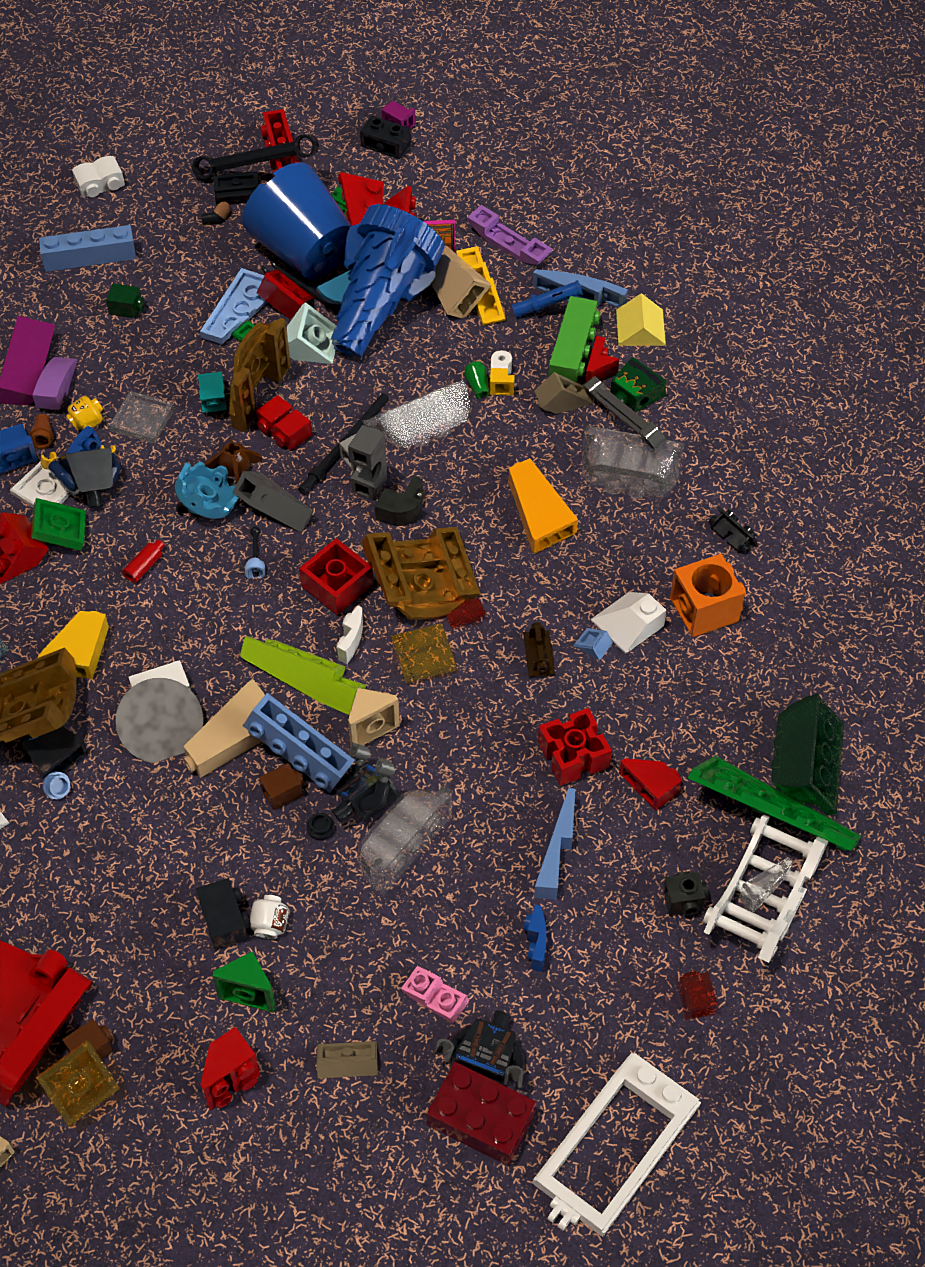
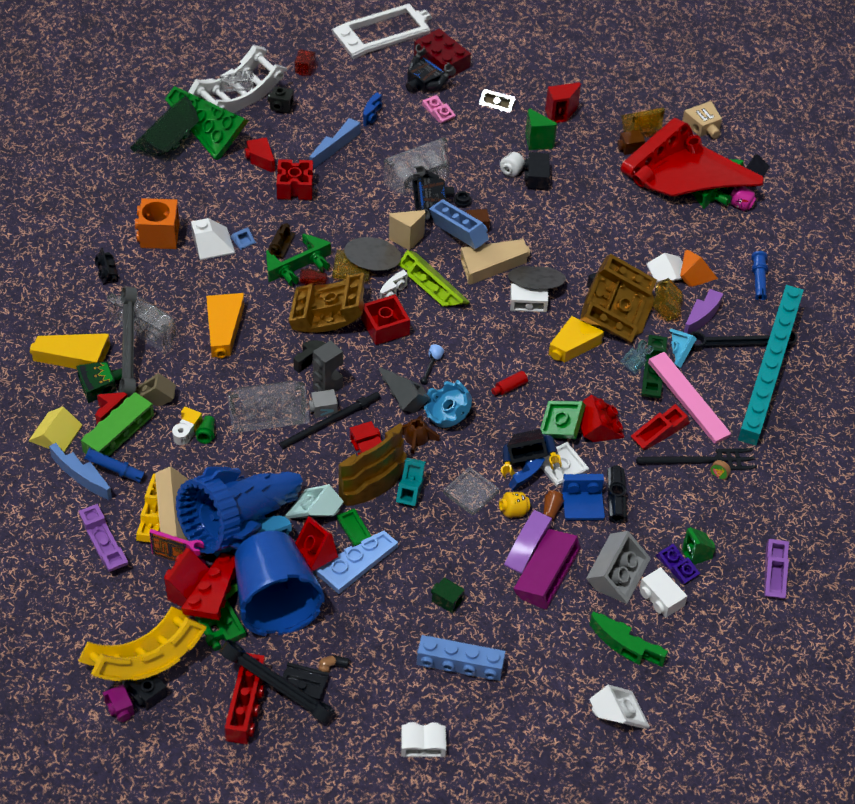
camera: 160 degrees left, 5 degrees down
(380, 131) = (147, 654): none -> yellow fence
(409, 671) = (372, 253): none -> flat silver sticker
(484, 646) = (315, 254): none -> green hose
(690, 407) = (70, 349): none -> yellow slope

